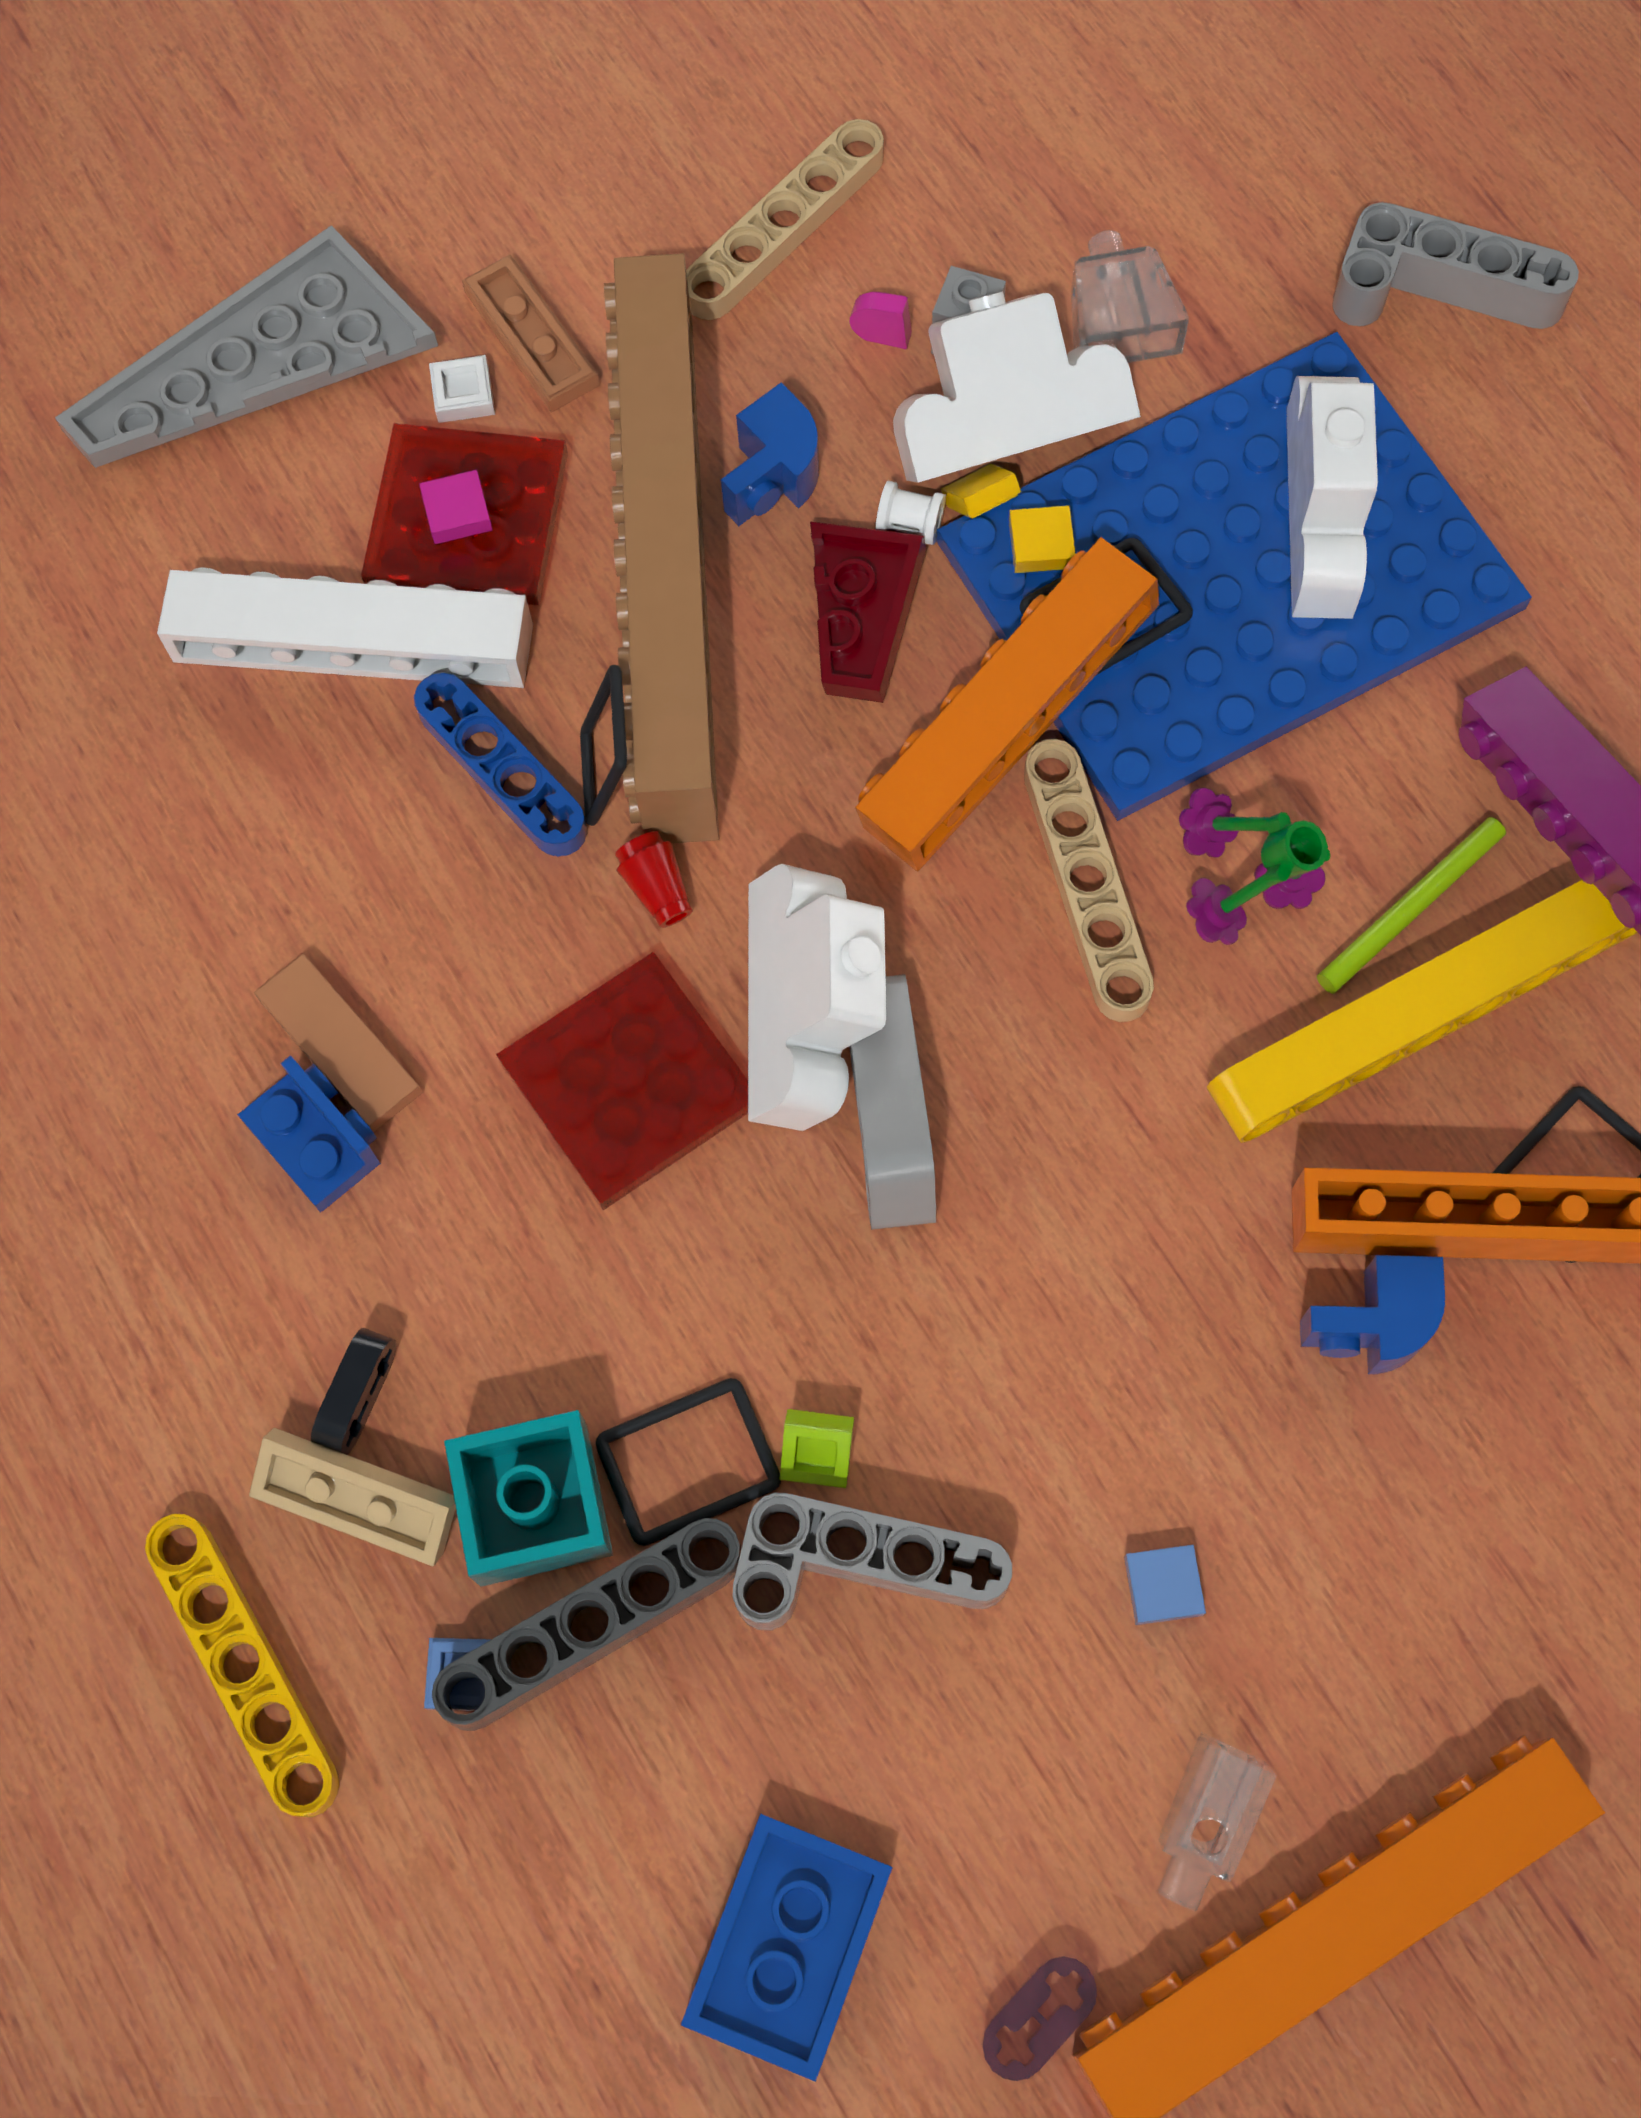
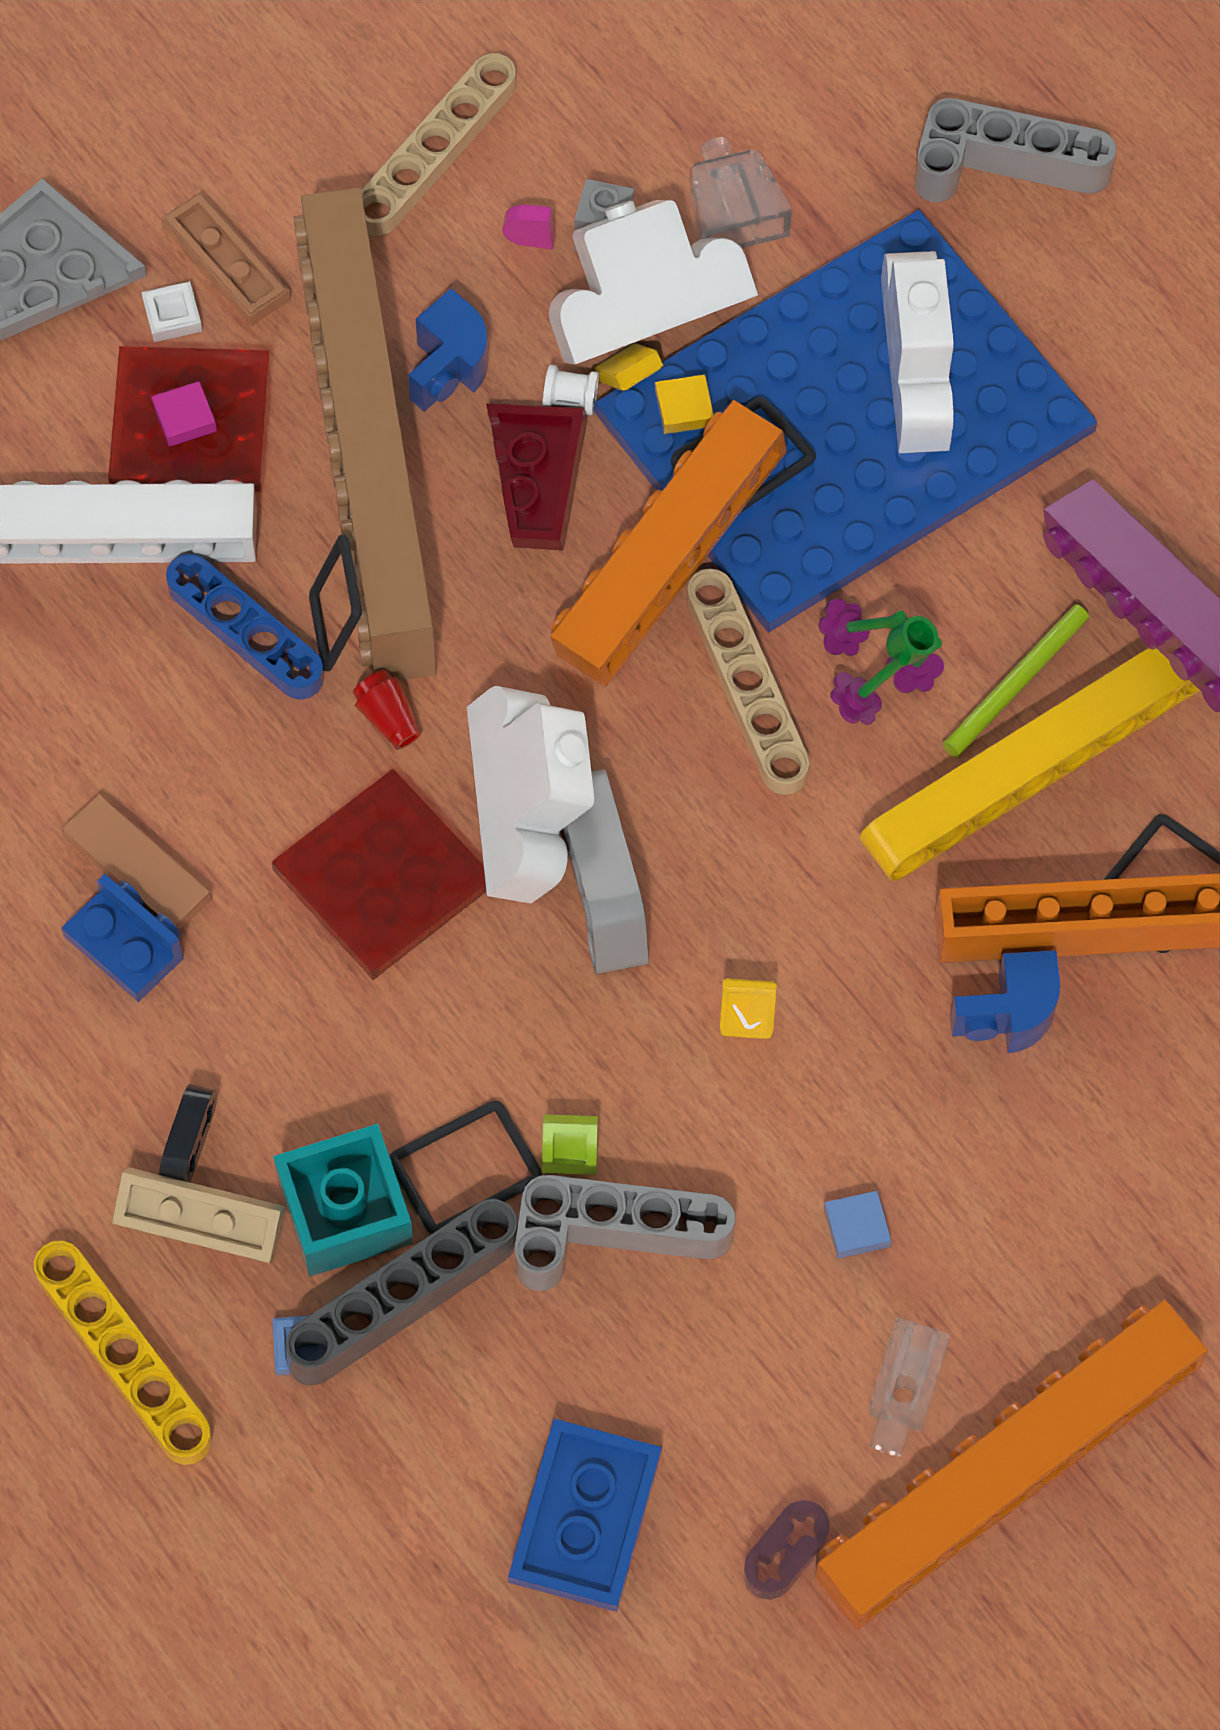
camera: 10 degrees left, 5 degrees down
(1052, 1292) = (748, 1008): none -> yellow slope

